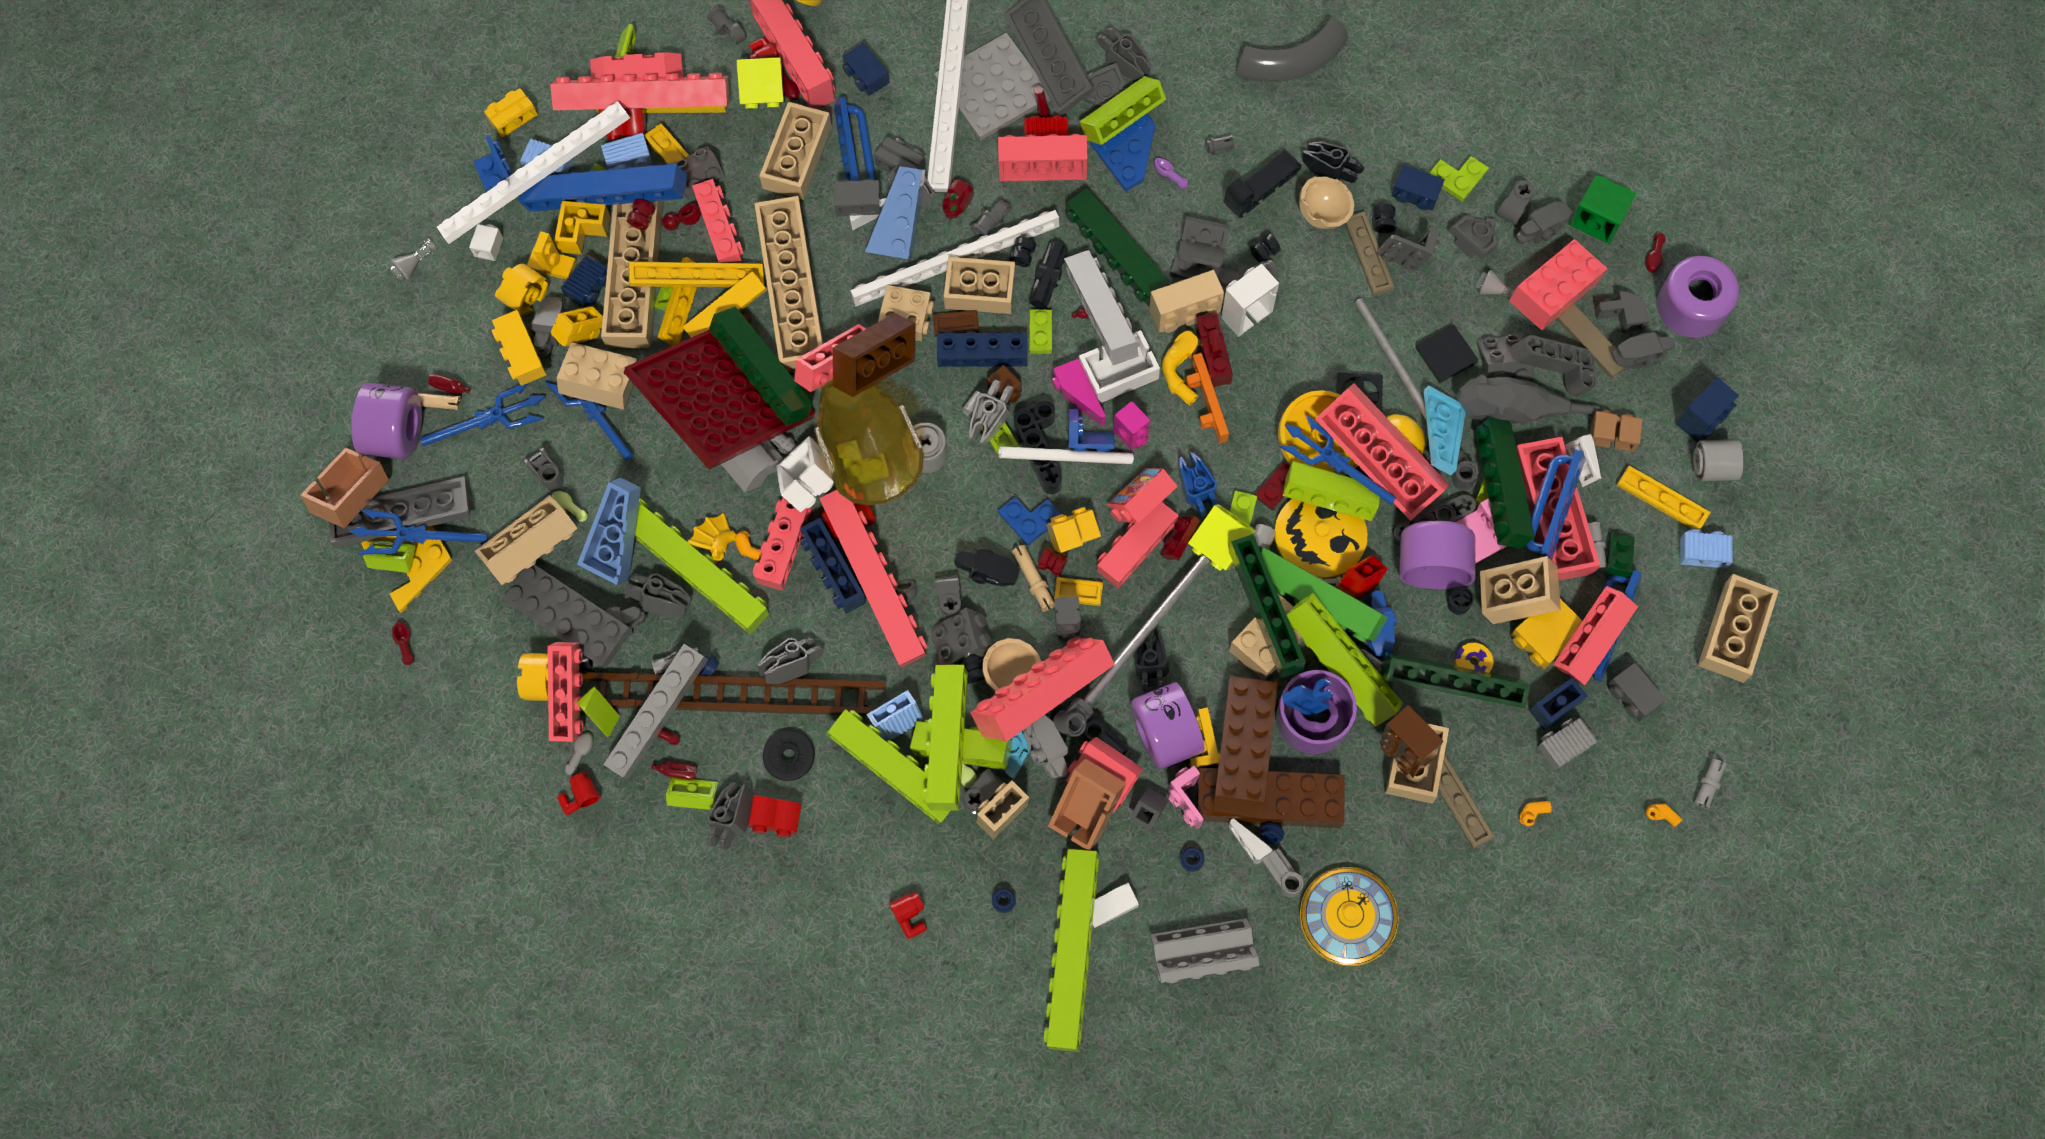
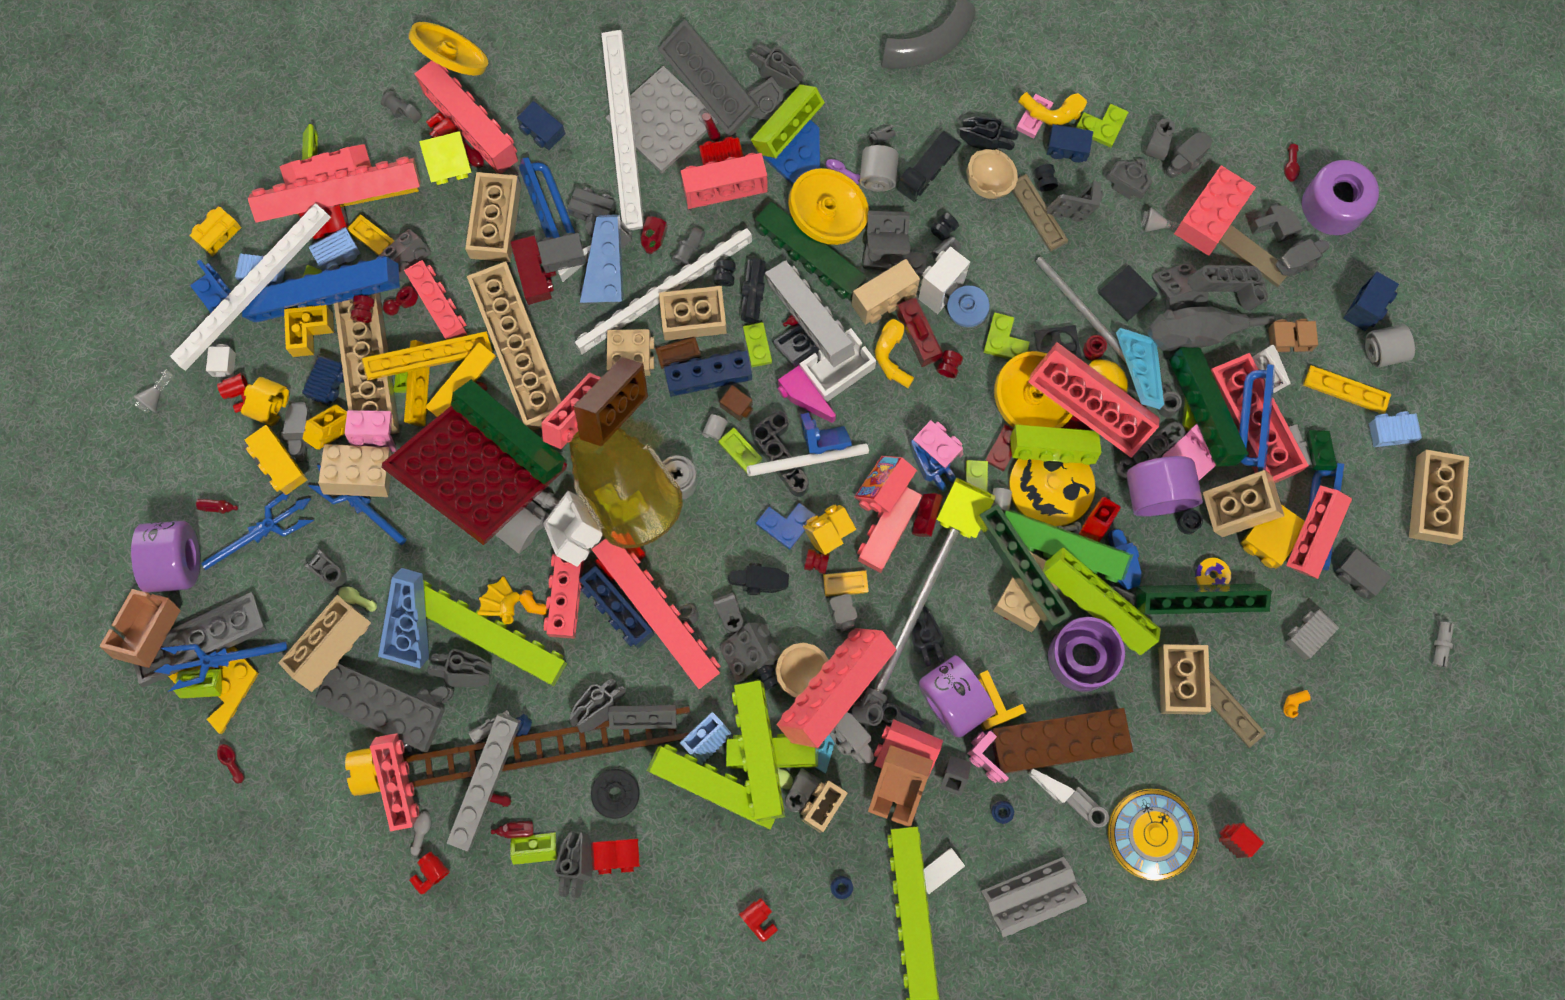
camera: 15 degrees left, 5 degrees up
(439, 401) = (210, 524): tan pin -> none
(492, 270) = (232, 388): none -> red piece
(548, 261) = (283, 367): yellow bracket -> none
(599, 711) = (430, 792): lime slope -> none
(620, 335) = (369, 429): none -> bright pink bracket
(822, 221) = (533, 280): none -> dark red piece
(834, 680) = (642, 717): none -> dark grey plate
(990, 413) = (730, 433): light grey hinge -> none
(1037, 585) = (808, 587): tan pin -> none
(1079, 338) = (795, 345): none -> black tile
(1132, 426) = (862, 420): dark pink brick -> none
(1146, 204) = (828, 206): none -> yellow dish
(1206, 465) = (938, 444): none -> bright pink bracket
(1208, 175) = (879, 168): none -> light grey piece
(1215, 417) = (915, 362): orange hinge -> none
(1238, 390) = (950, 363): none -> dark red wheel
(1245, 747) = (1031, 702): reddish brown brick -> none
(1271, 335) = (968, 307): none -> medium blue piece
(1272, 833) = (1069, 773): dark blue plate -> none
(1298, 376) = (999, 340): none -> lime plate
(1309, 701) = (1079, 648): blue plate -> none
(1333, 459) = (1051, 415): blue piece -> none
(1386, 154) = (1029, 125): none -> bright pink plate
(1394, 405) = (1092, 351): none -> dark red wheel
(1410, 741) = (1181, 670): reddish brown brick -> none
(1424, 154) = (1069, 110): none -> yellow piece
(1439, 938) = (1240, 840): none -> red brick
(1558, 703) = (1297, 600): dark blue brick -> none
(1603, 209) = (1239, 131): green slope -> none
(1663, 811) = (1408, 678): light orange arm -> none

